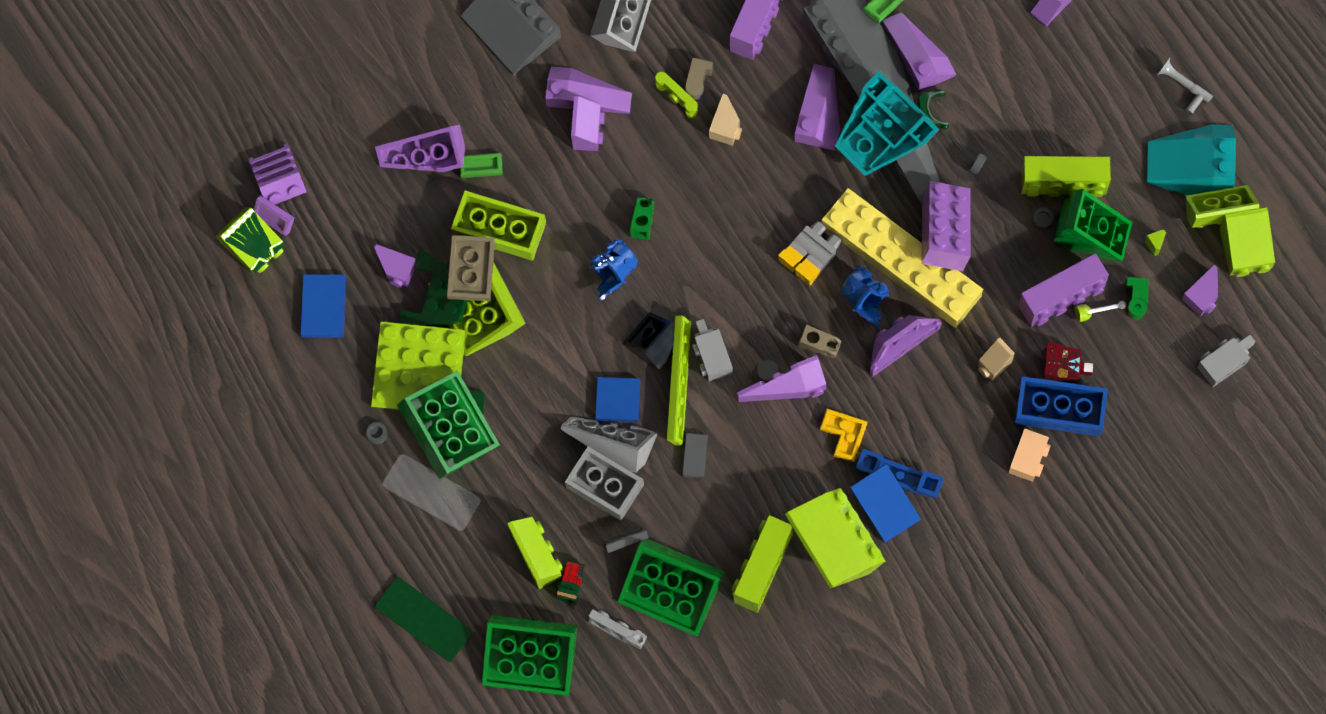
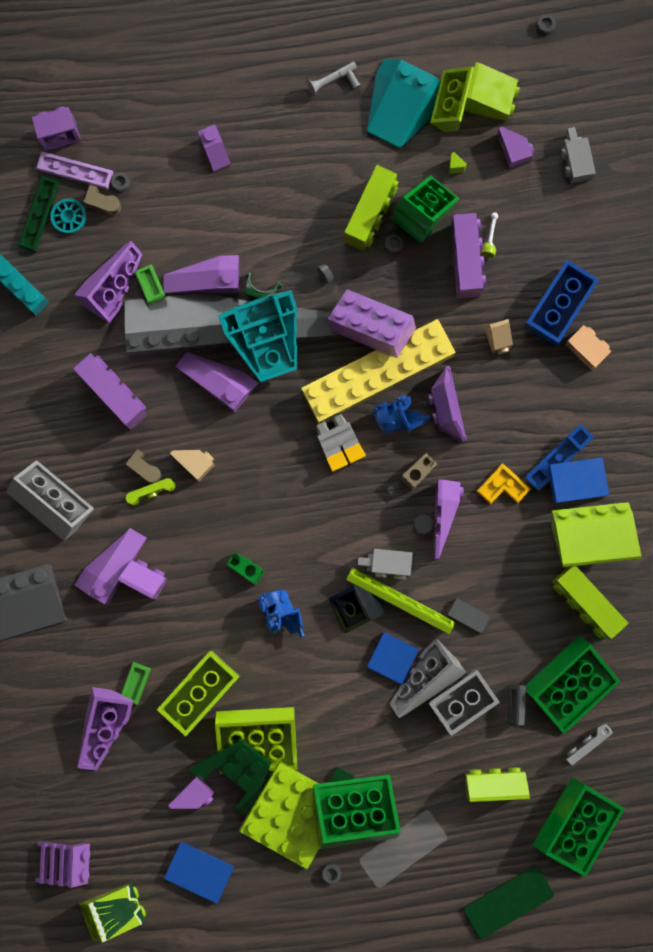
camera: 70 degrees left, 10 degrees up
(273, 215) = (99, 883): medium lavender tile -> none
(471, 268) = (231, 735): dark tan plate -> none
(571, 582) = (533, 765): leg -> none
(1064, 364) = (526, 286): dark red torso -> none
(1138, 297) = (496, 200): green leg -> none

